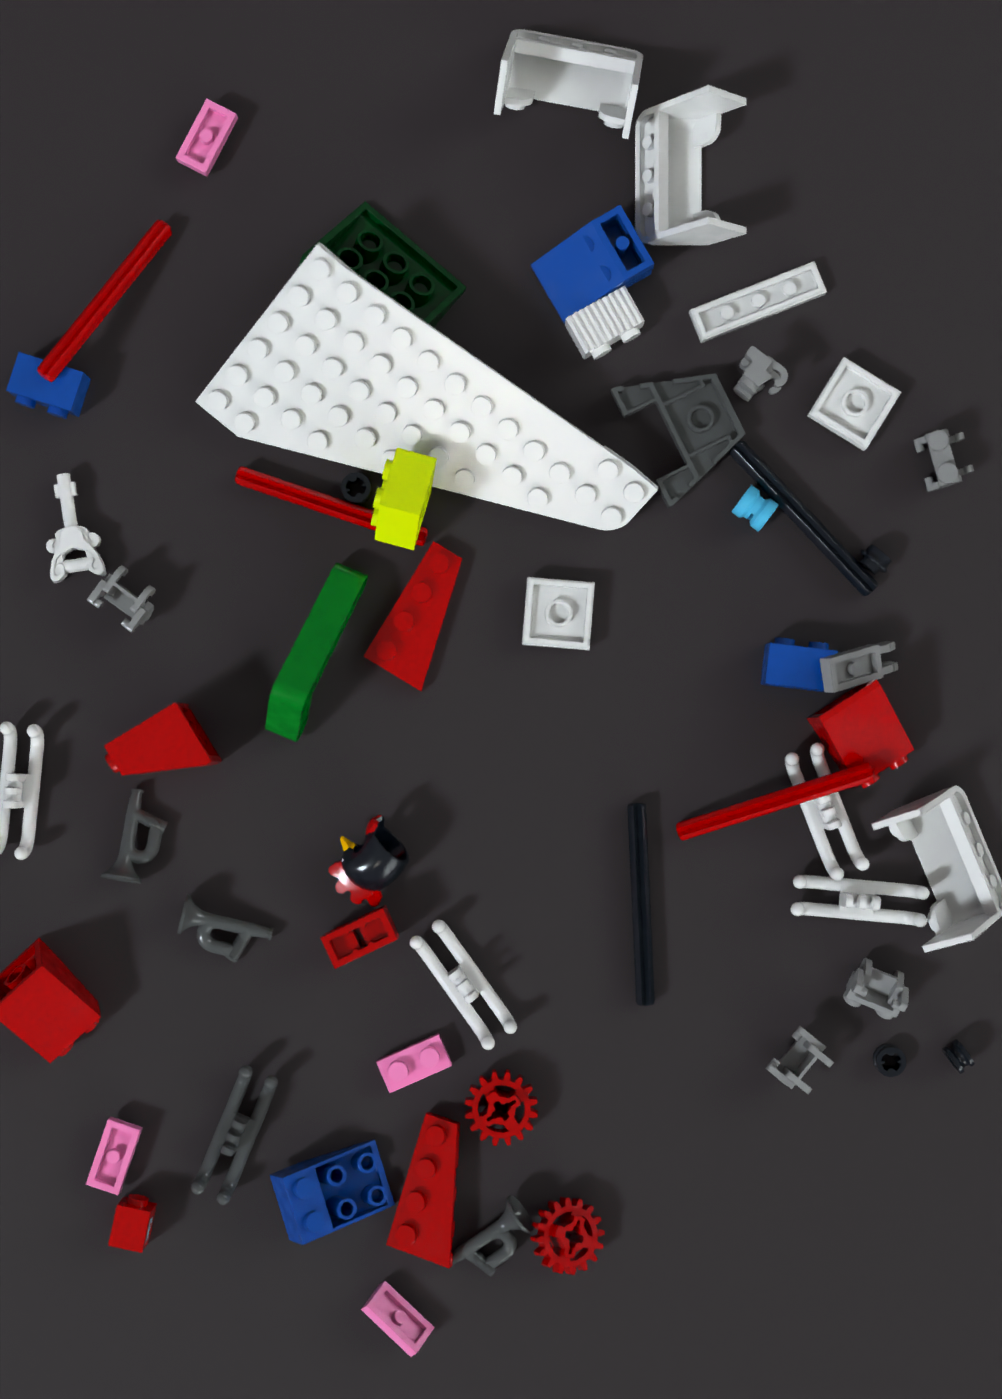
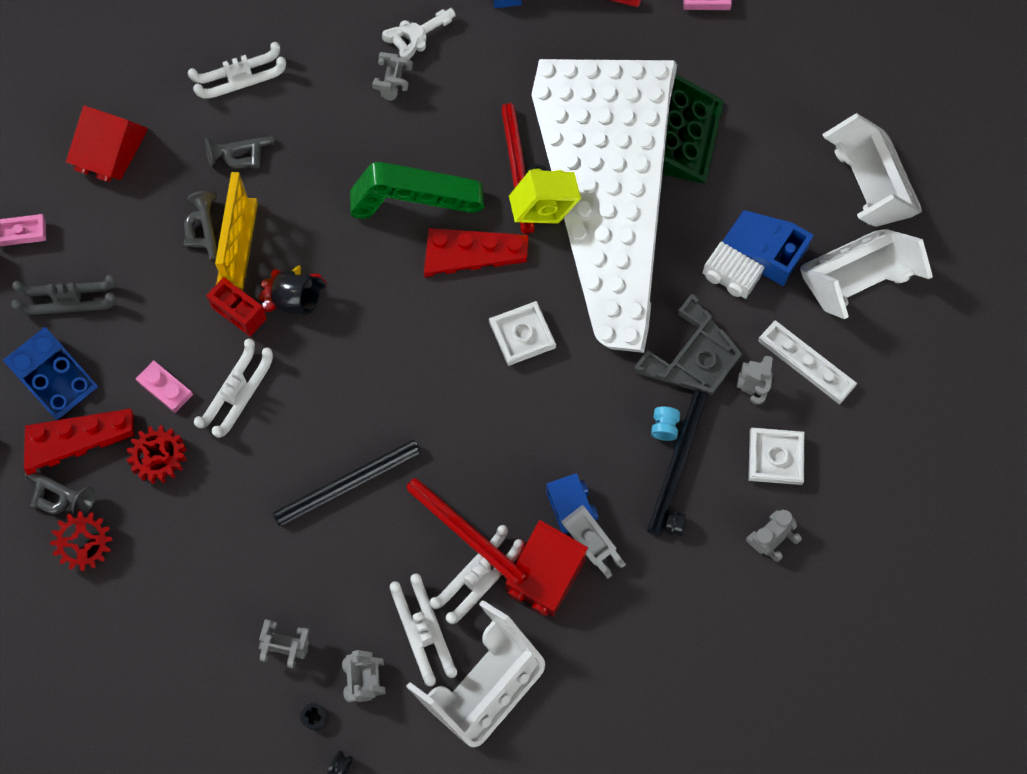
camera: 65 degrees right, 20 degrees down
(162, 743) = (309, 133): red slope -> none
(263, 896) = (236, 233): none -> yellow fence

